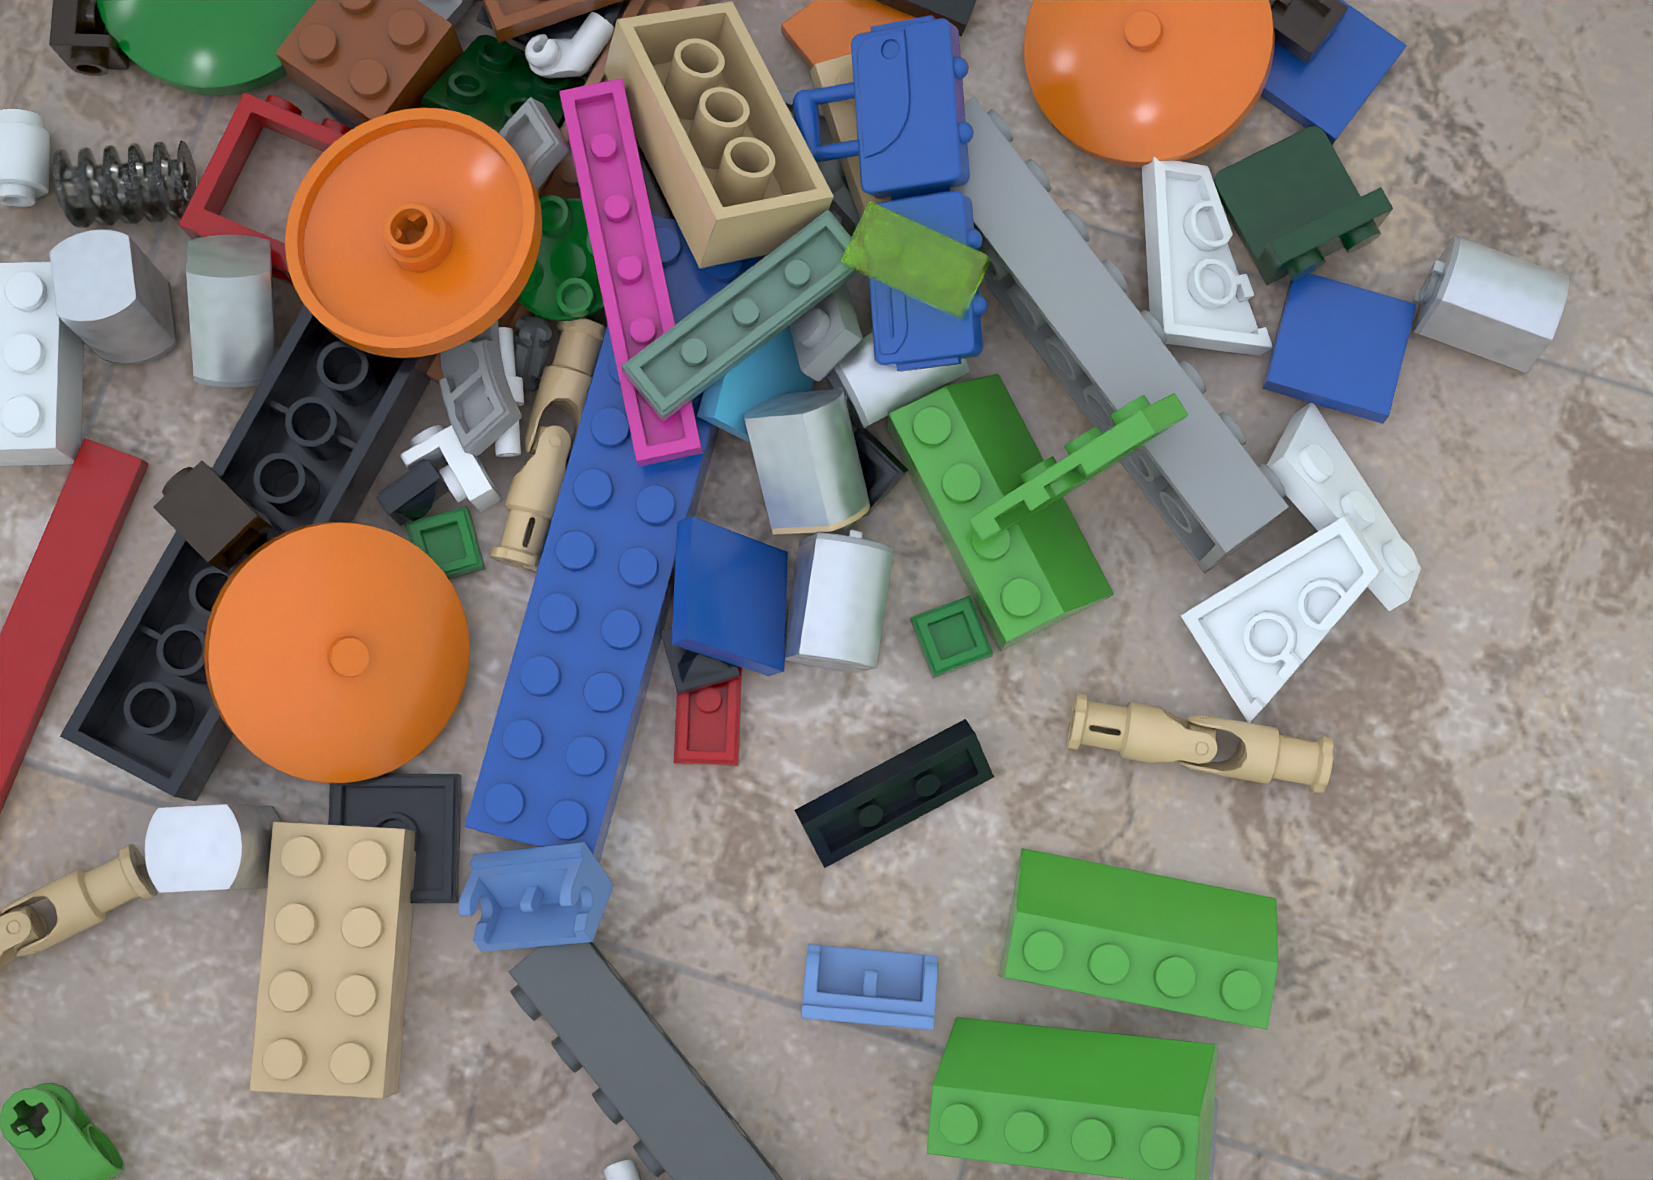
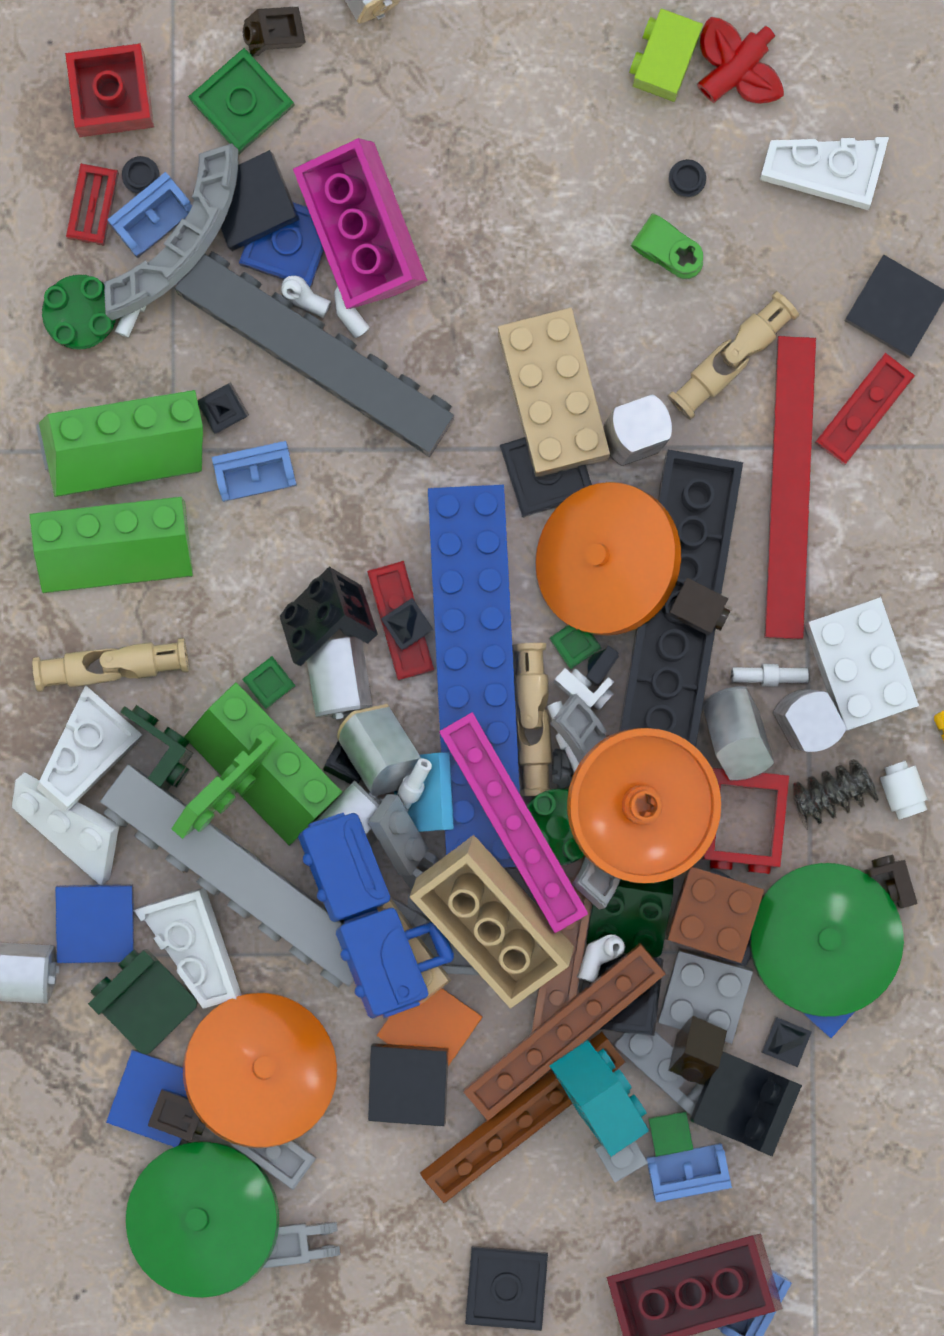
camera: 160 degrees right, 5 degrees up
(159, 399) = (769, 675): none -> white bar
(536, 896) = (452, 459): medium blue hinge -> none
(729, 597) = (401, 661): blue tile -> none
(741, 317) = (437, 814): sand green tile -> none
(771, 385) = (413, 785): none -> white bar
(825, 711) = (323, 609): none -> black bracket
(889, 1111) = (222, 408): none -> black tile
(894, 793) = (273, 582): black plate -> none
(915, 260) = (350, 870): clear neon green plate -> none
(1140, 584) = (171, 768): none -> dark green bracket

